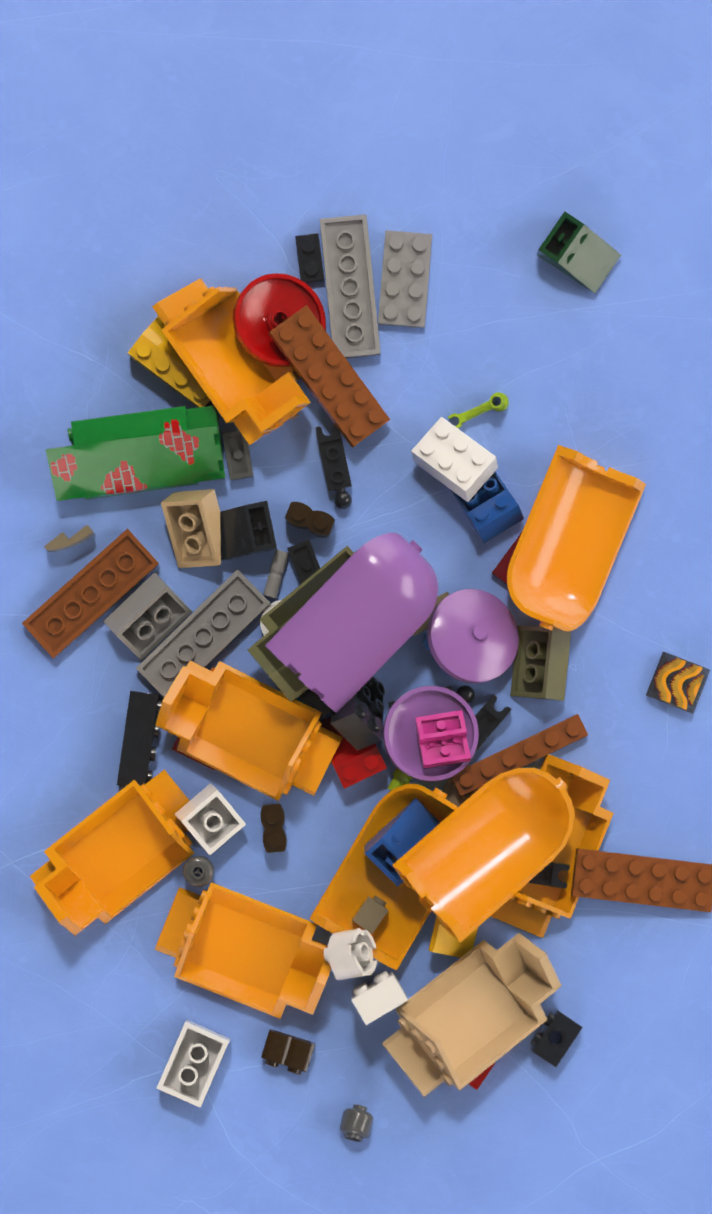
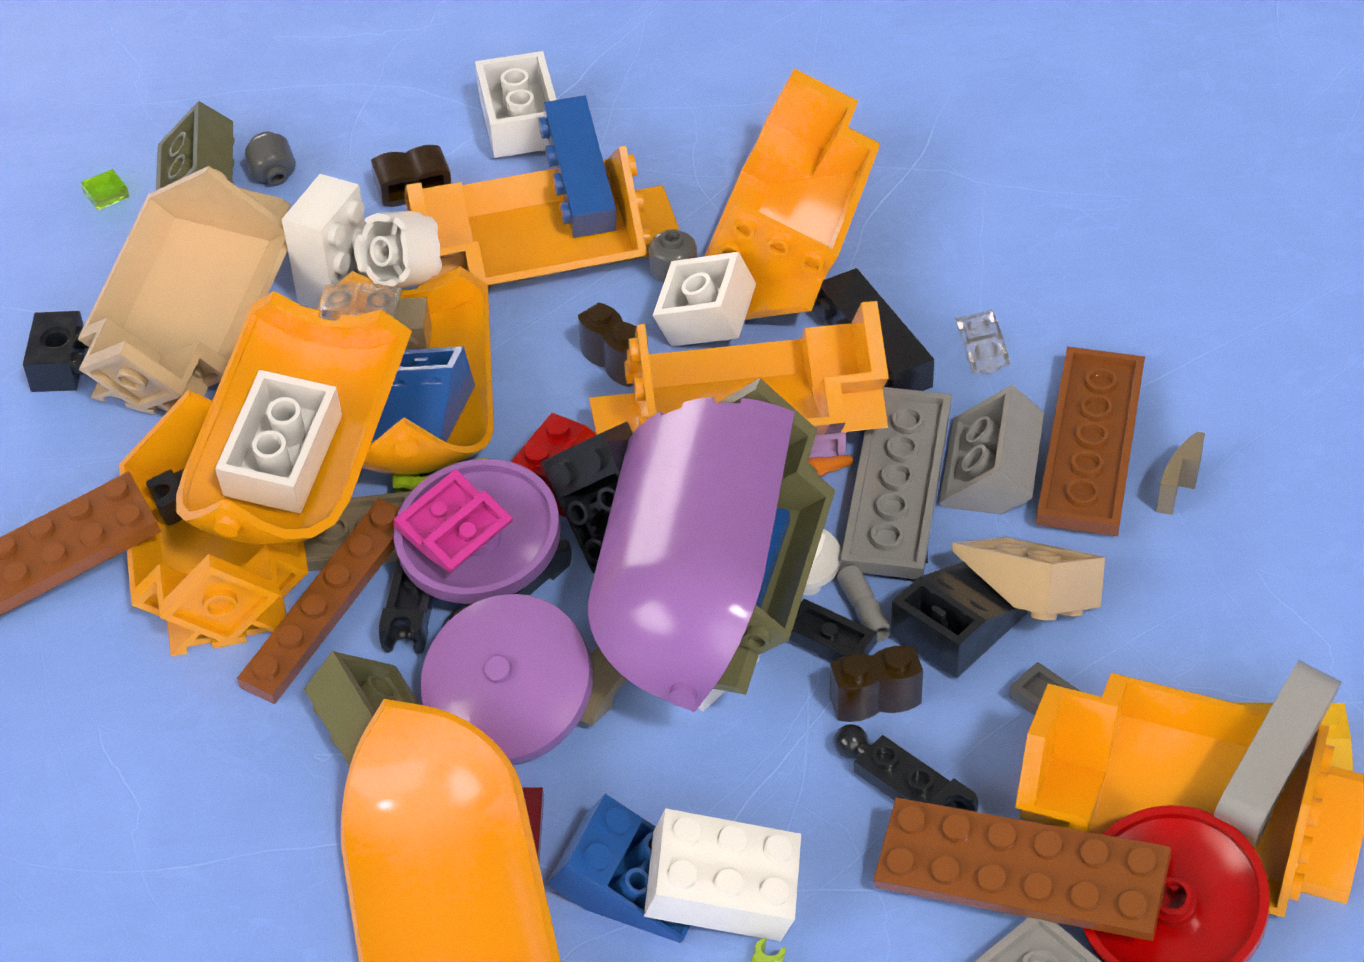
camera: 145 degrees right, 40 degrees down
(89, 695) = (983, 342): none -> clear slope
(138, 453) = (1158, 616): green panel -> none
(203, 972) = (579, 166): none -> blue brick
(215, 326) = (1276, 750): none -> light grey beam
(391, 936) = (357, 299): none -> clear slope
(399, 1151) = (194, 143): none -> olive slope
(458, 1172) = (105, 189): none -> clear neon green tile
(498, 839) = (279, 441): none -> white brick
(678, 682) = (133, 822): slope -> none

